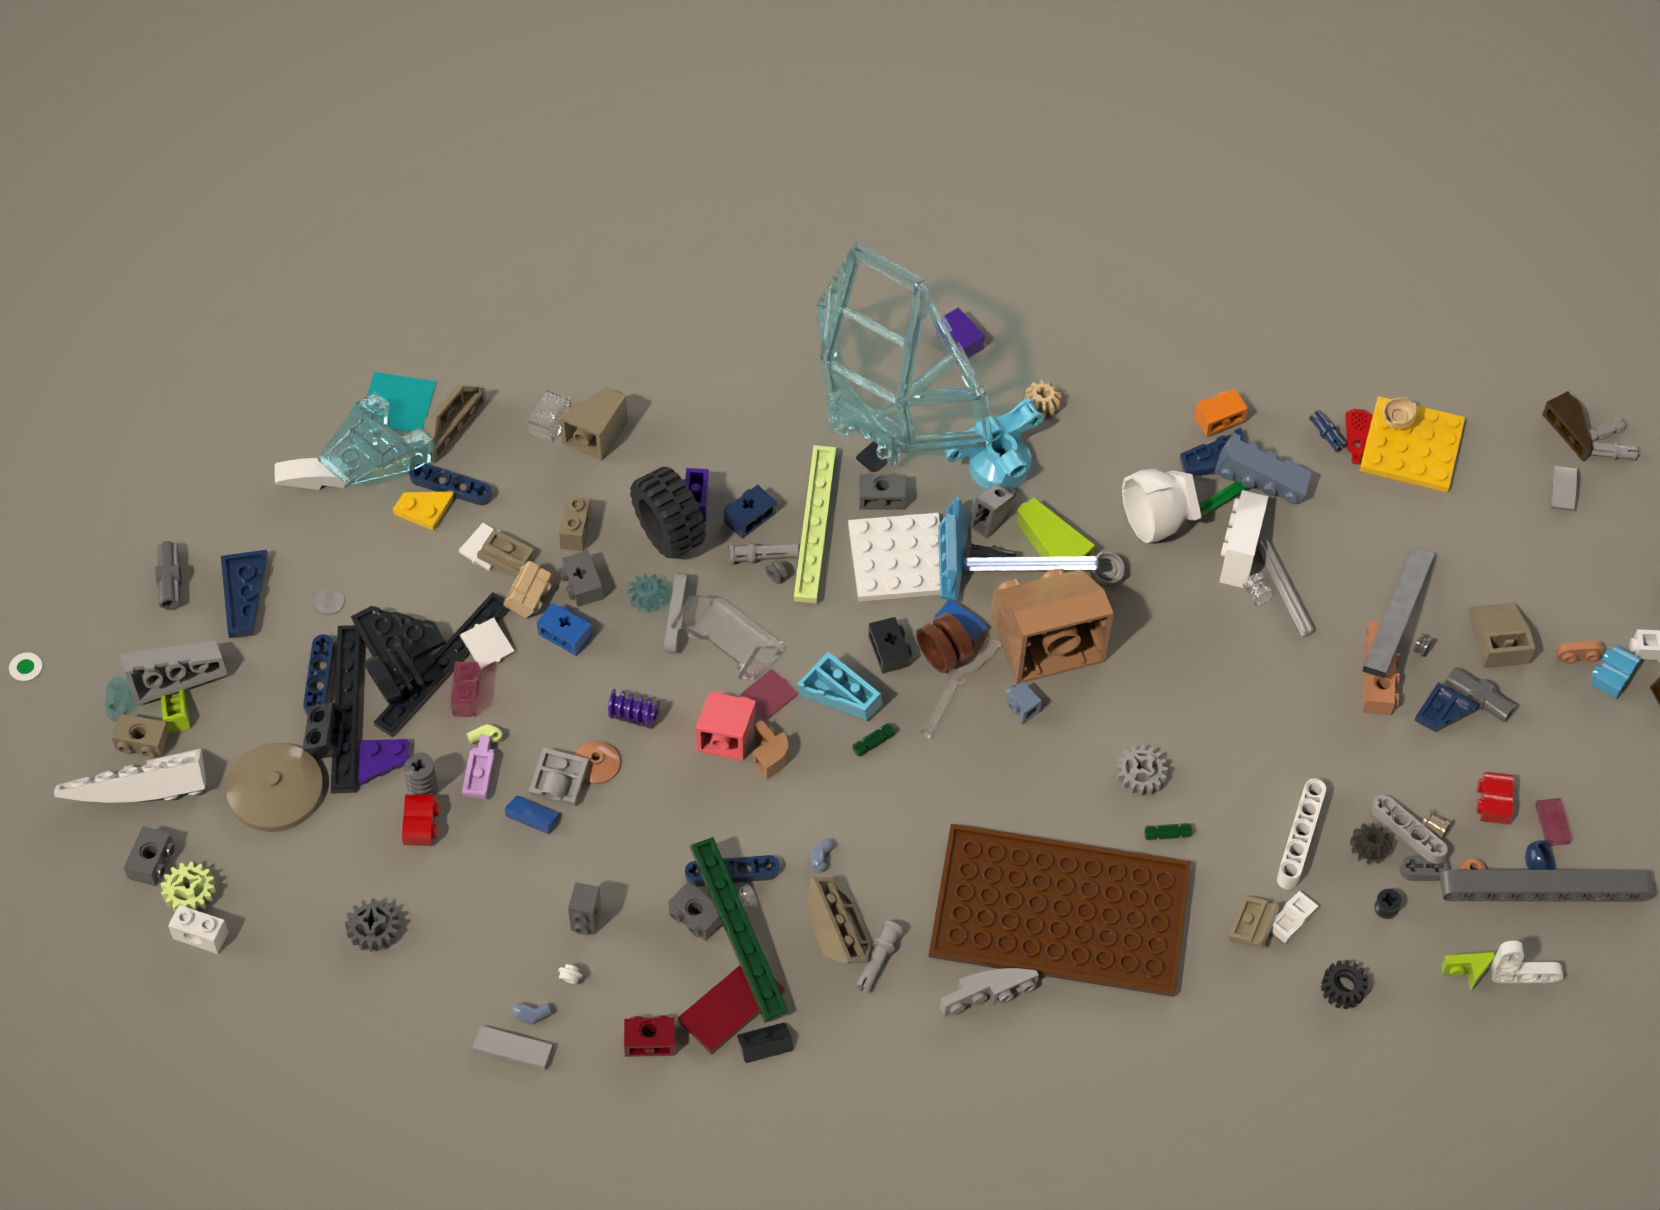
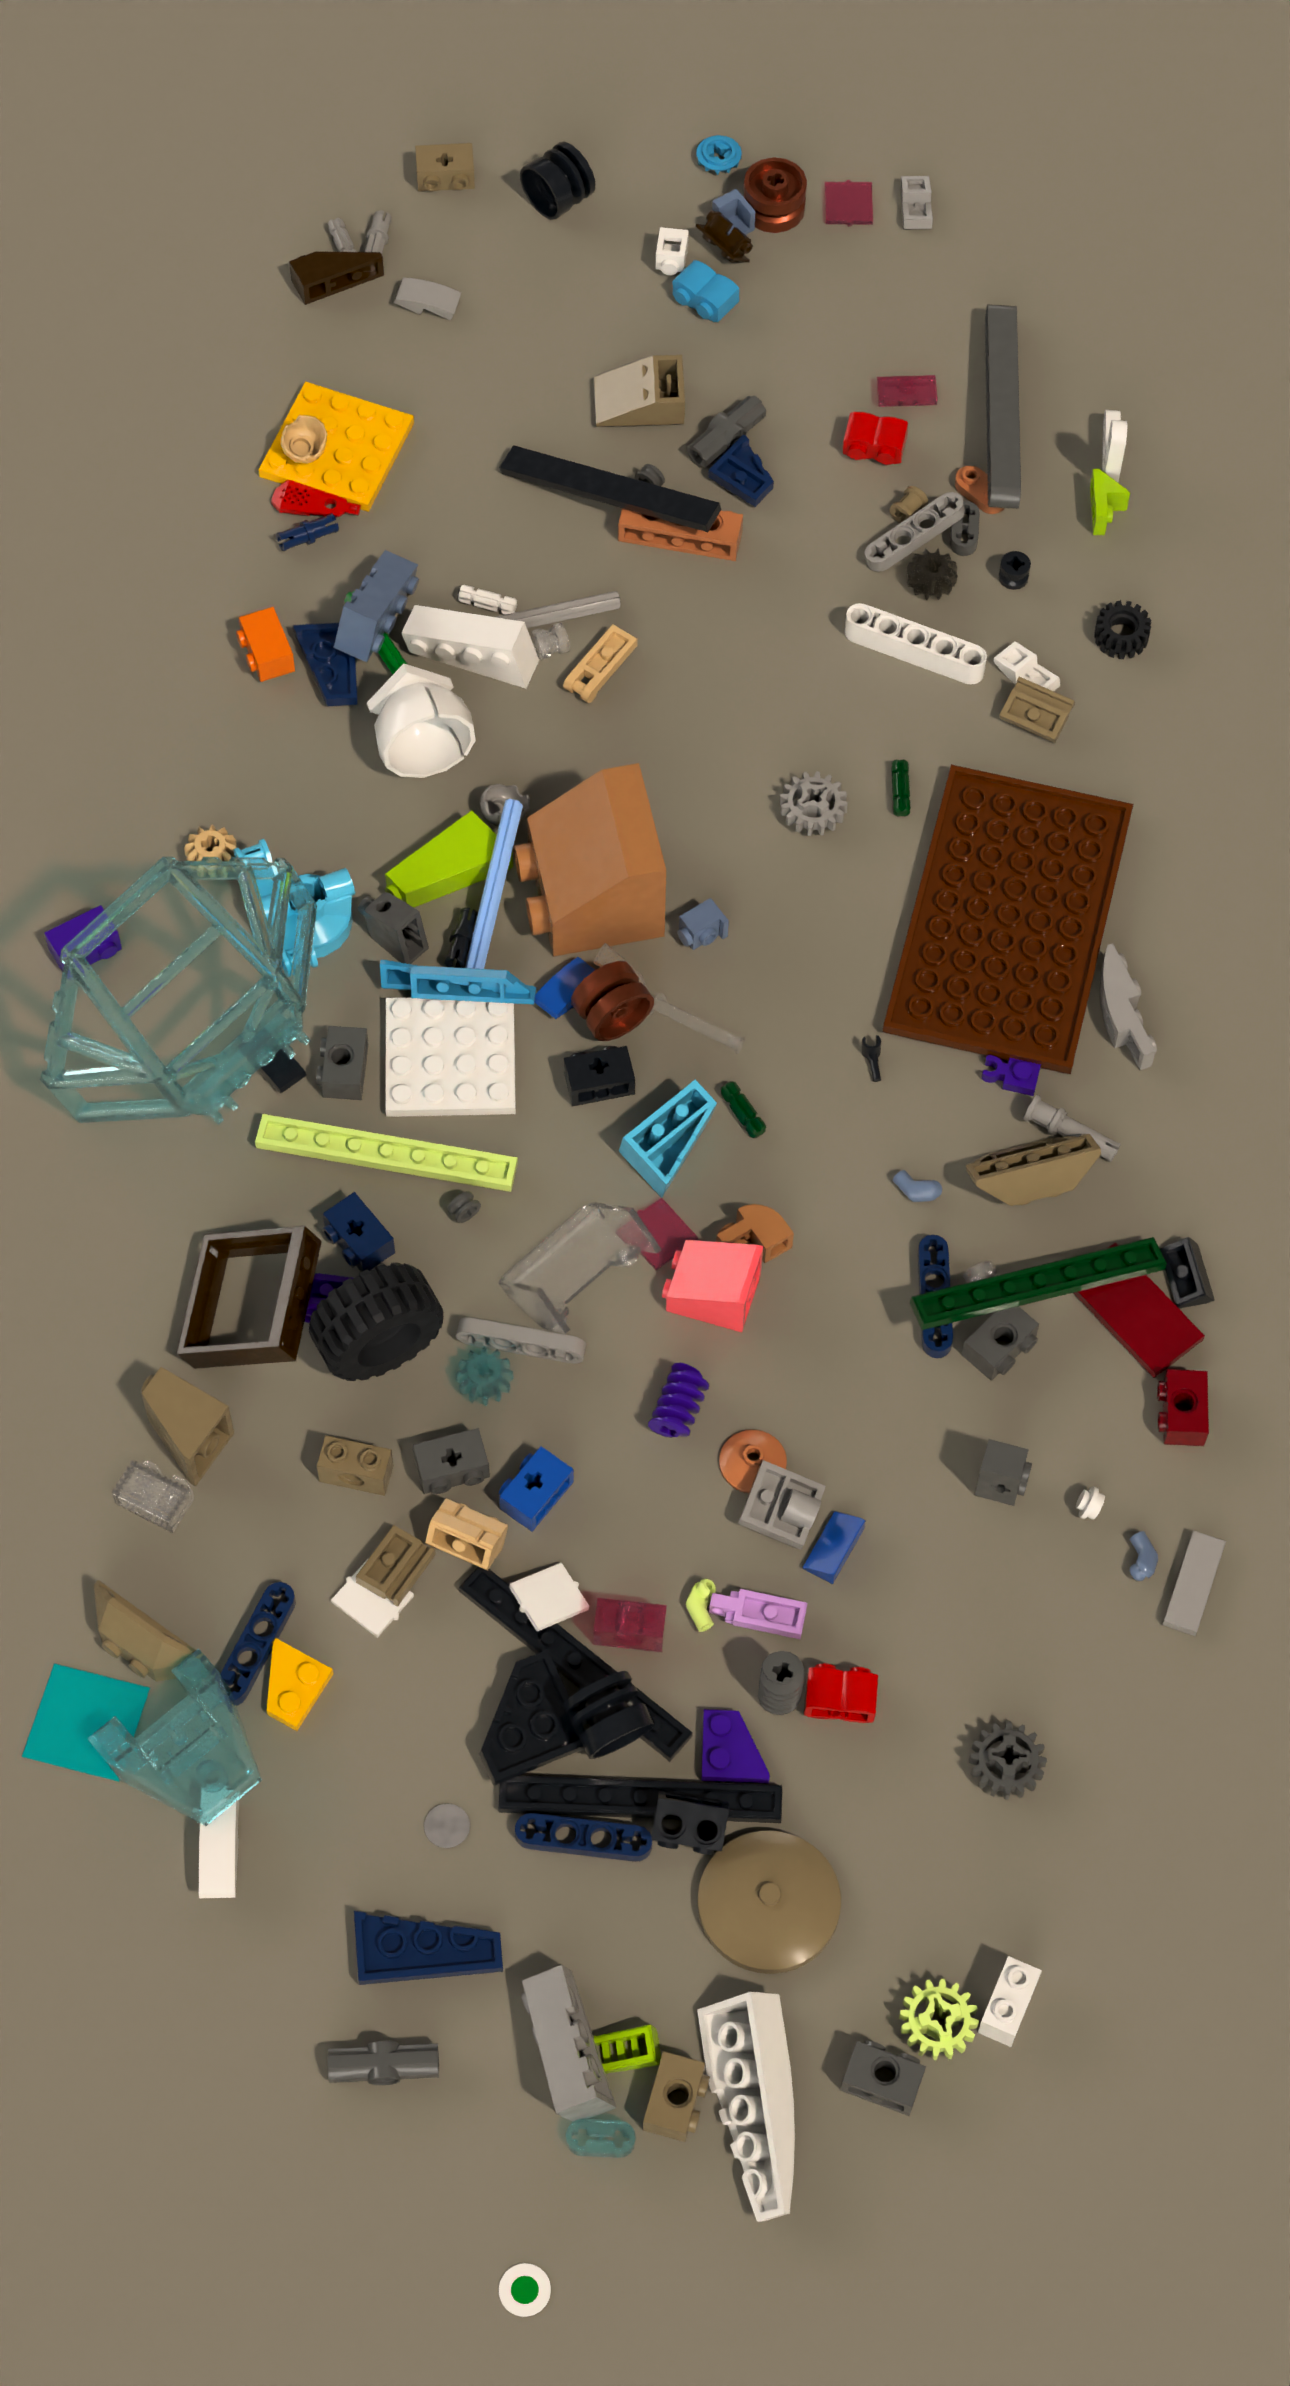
camera: 85 degrees left, 5 degrees up
(685, 462) = (291, 1306): none -> dark brown window
(751, 552) = (428, 1235): light grey pin -> none
(923, 919) = (1017, 1075): none -> dark purple plate
(935, 825) = (872, 1053): none -> black hand
(1245, 624) = (600, 663): none -> tan plate
(1290, 549) = (487, 599): none -> white axle
(1539, 856) = (964, 409): dark blue hair -> none
(1579, 651) = (676, 311): nougat plate -> none

